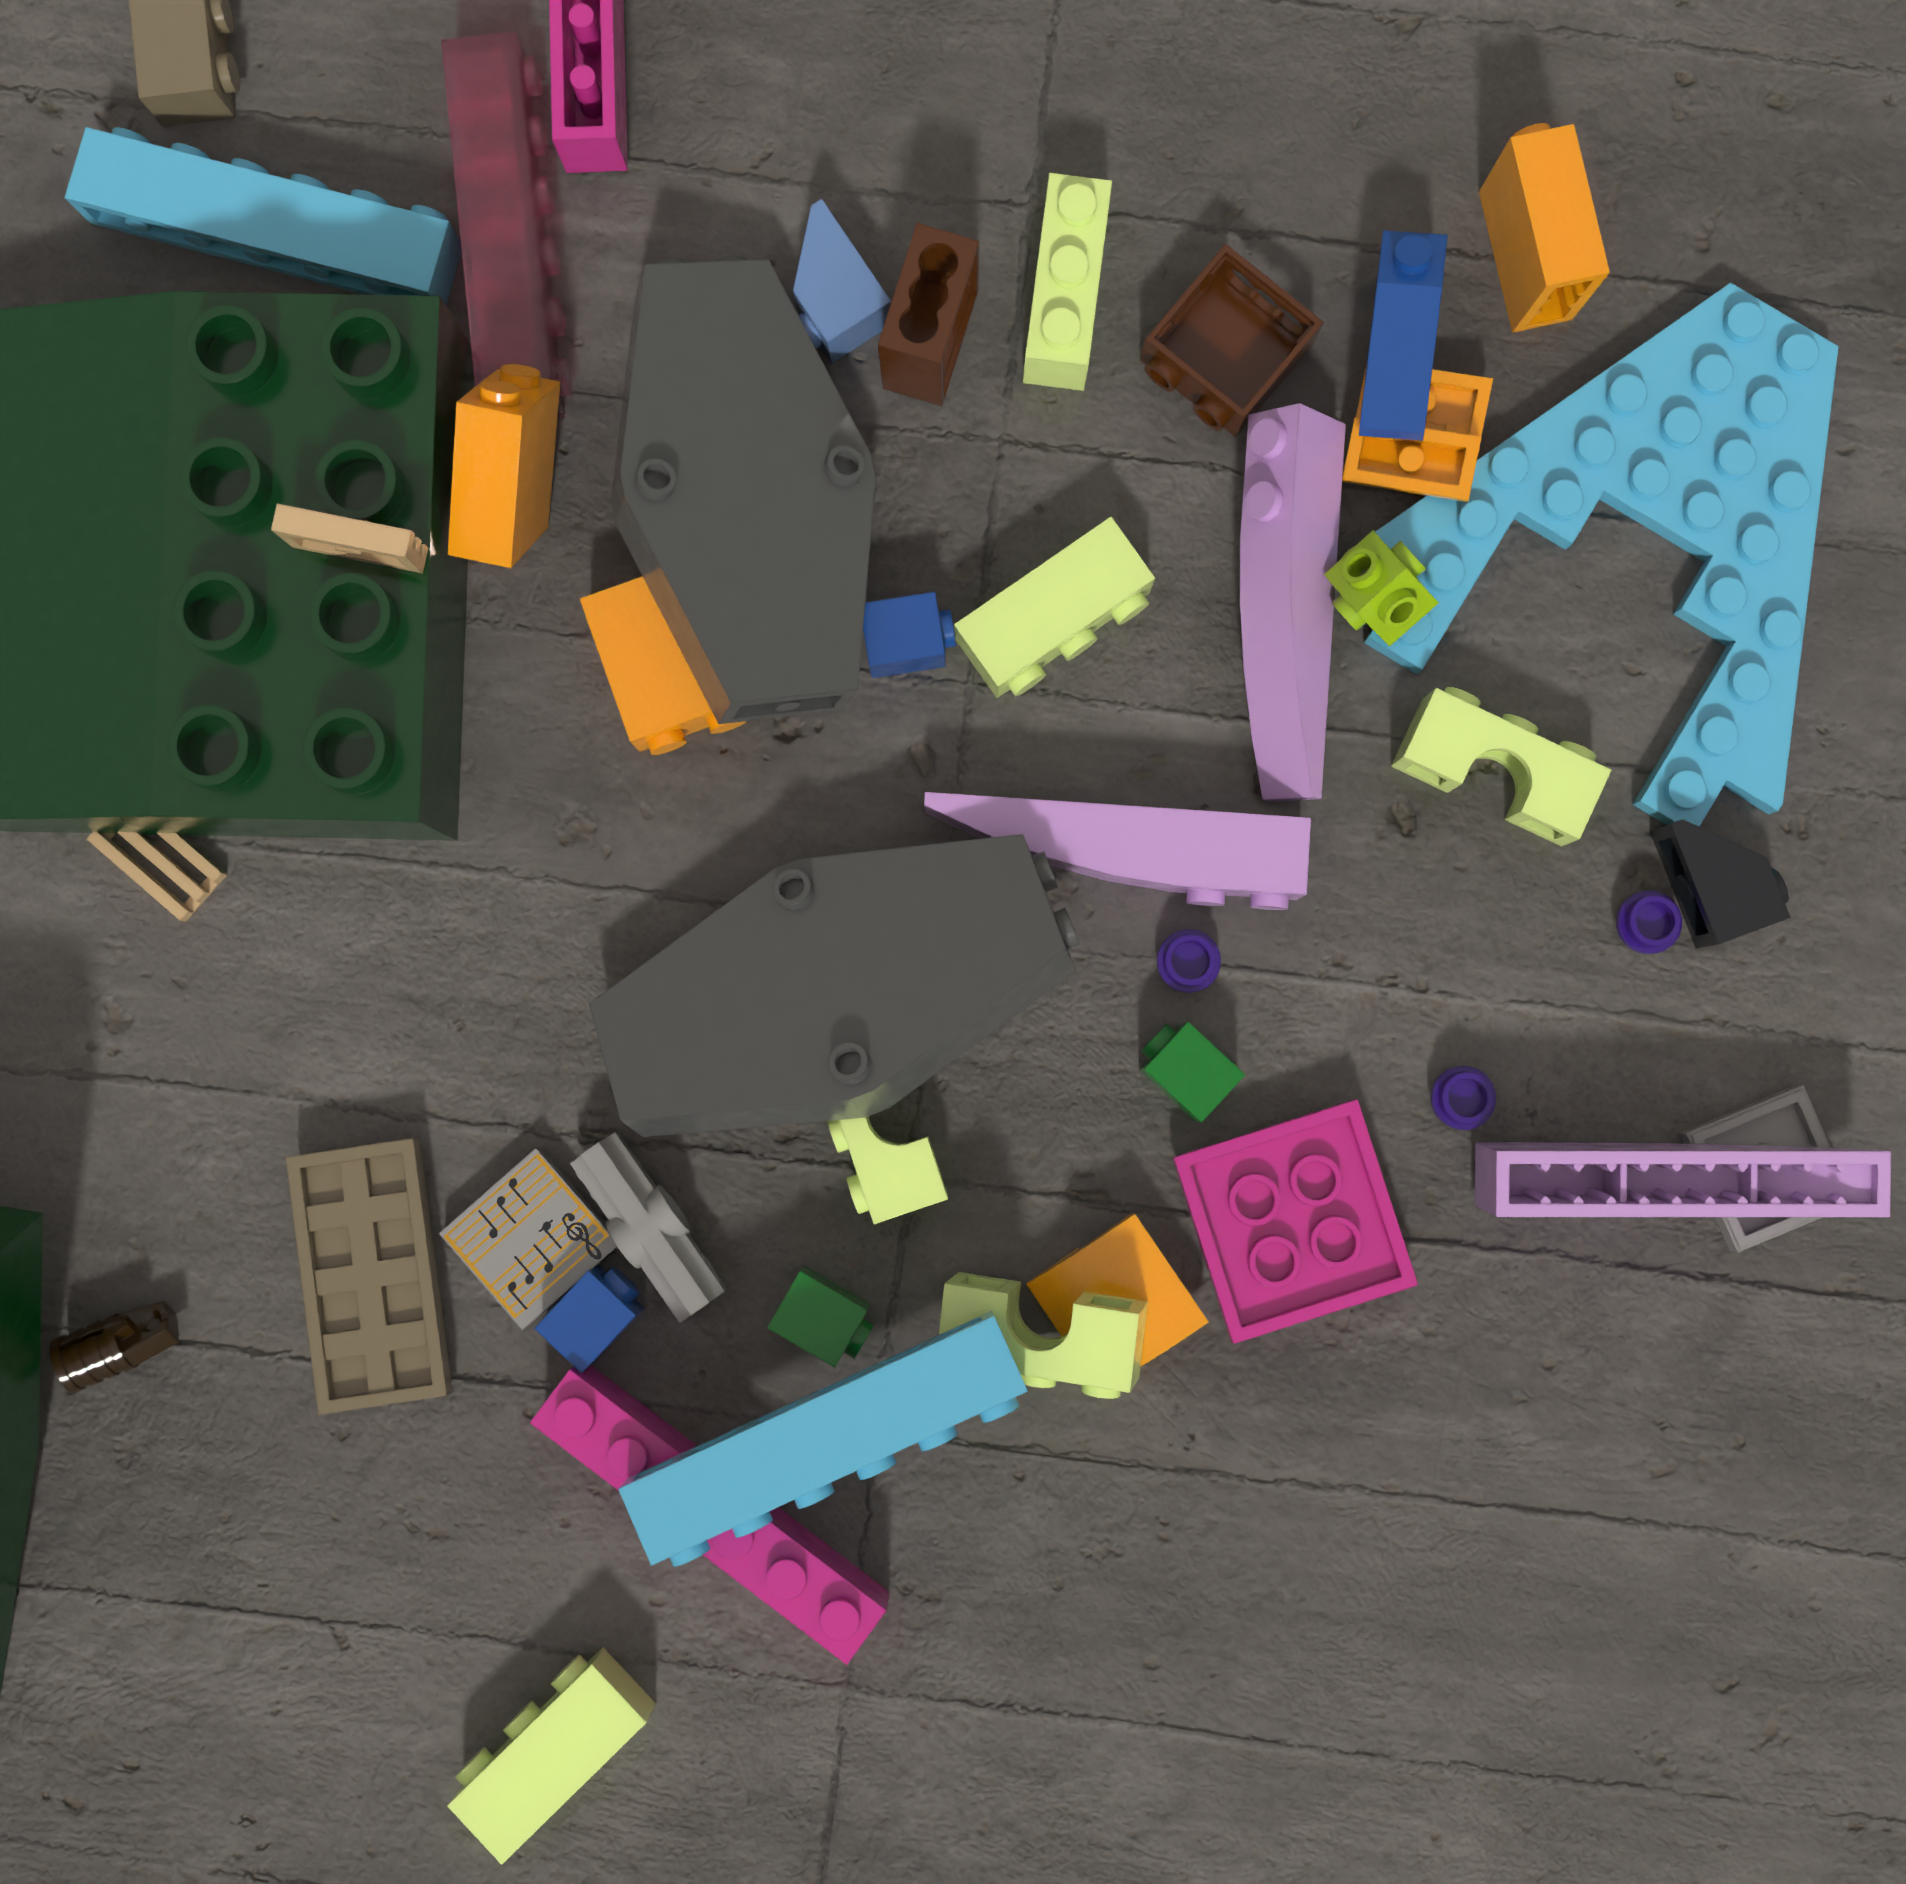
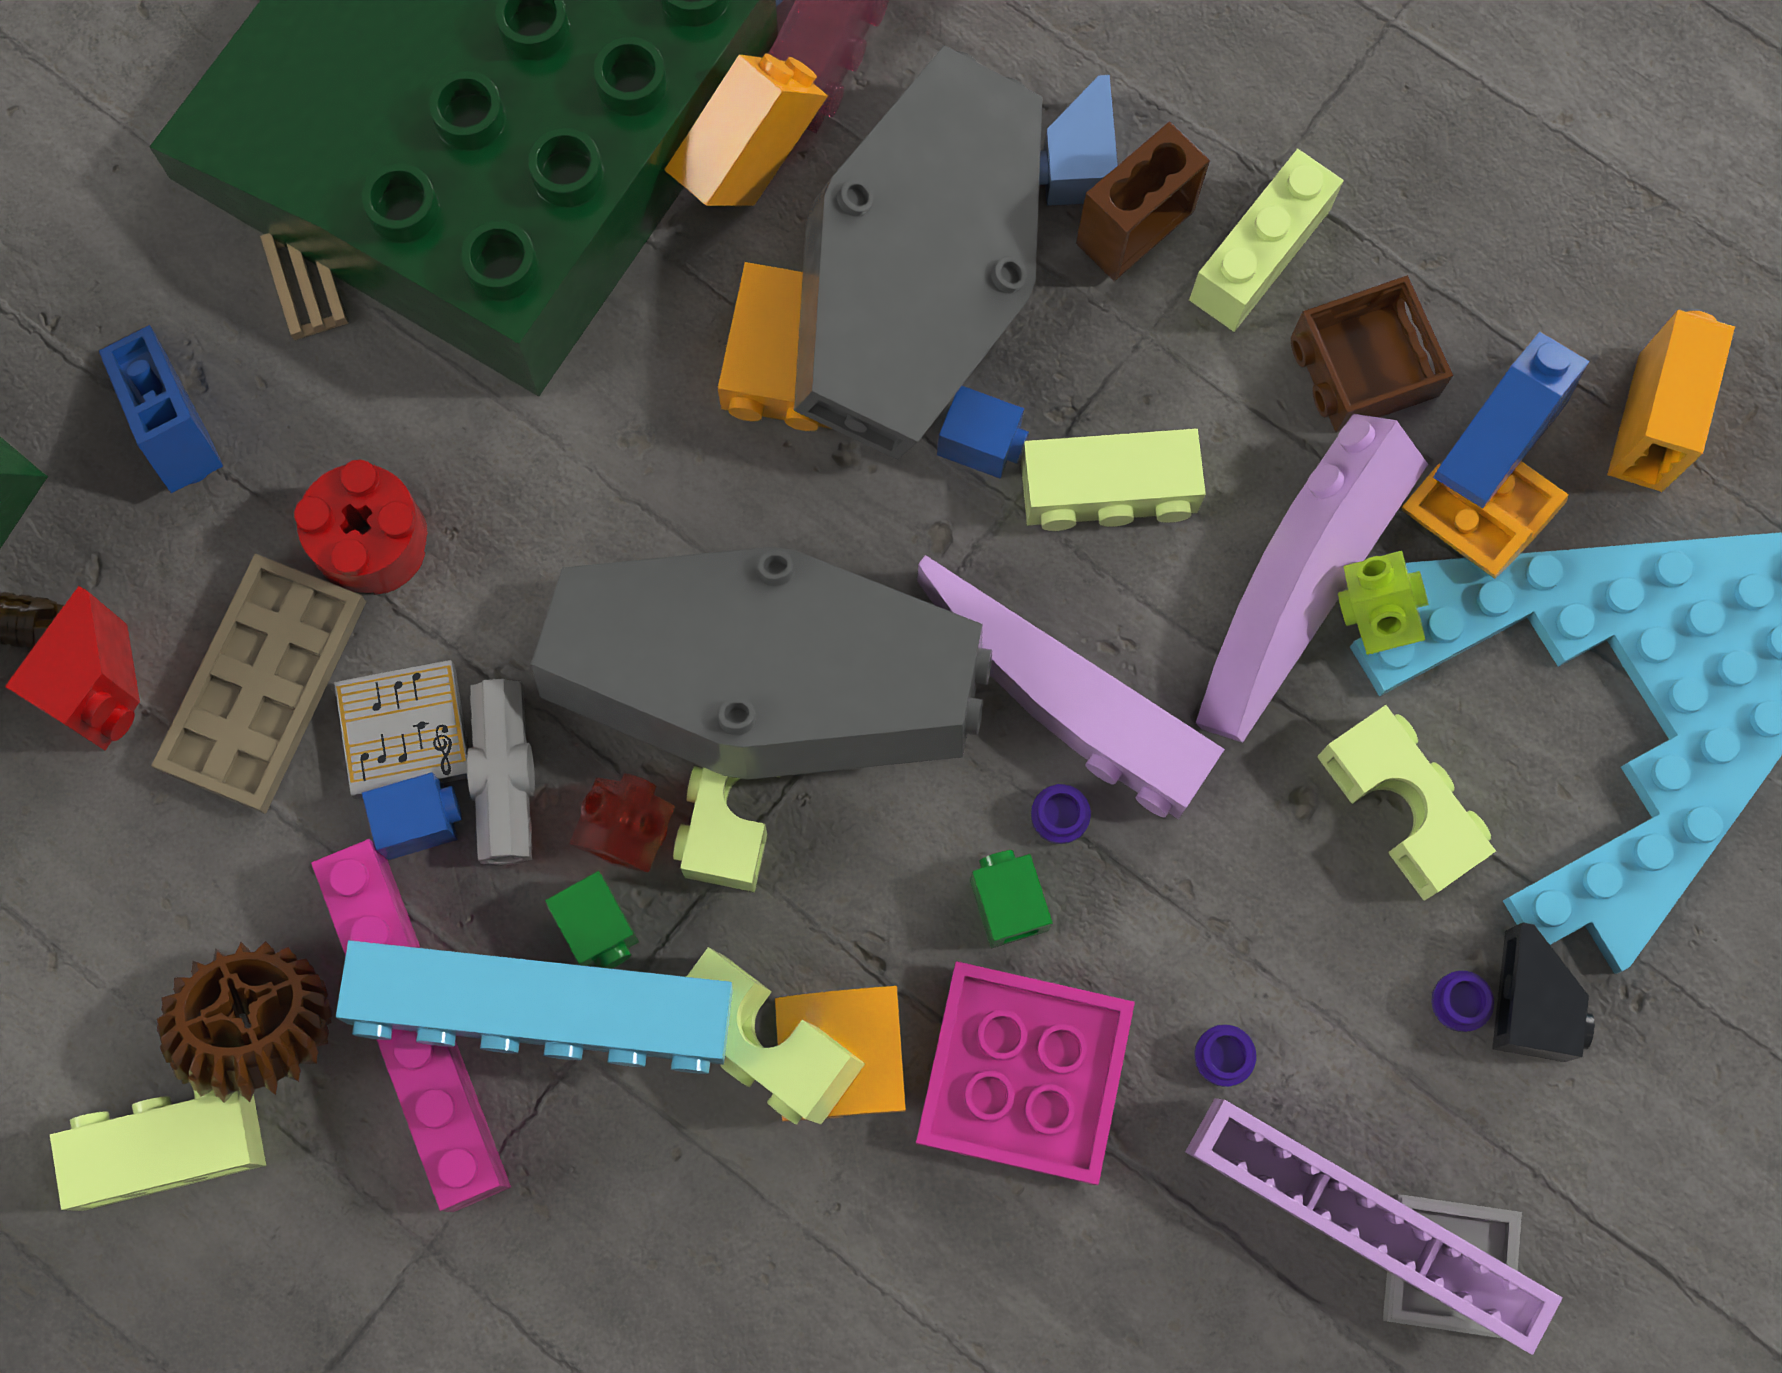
camera: 25 degrees right, 10 degrees down
(101, 1070) = (159, 410): none -> blue slope
(198, 1371) = (82, 671): none -> red slope
(336, 1079) = (356, 498): none -> red brick
(349, 538) = (598, 108): tan tile -> none
(521, 1635) = (209, 1040): none -> reddish brown gear
(793, 1210) = (623, 822): none -> clear red brick

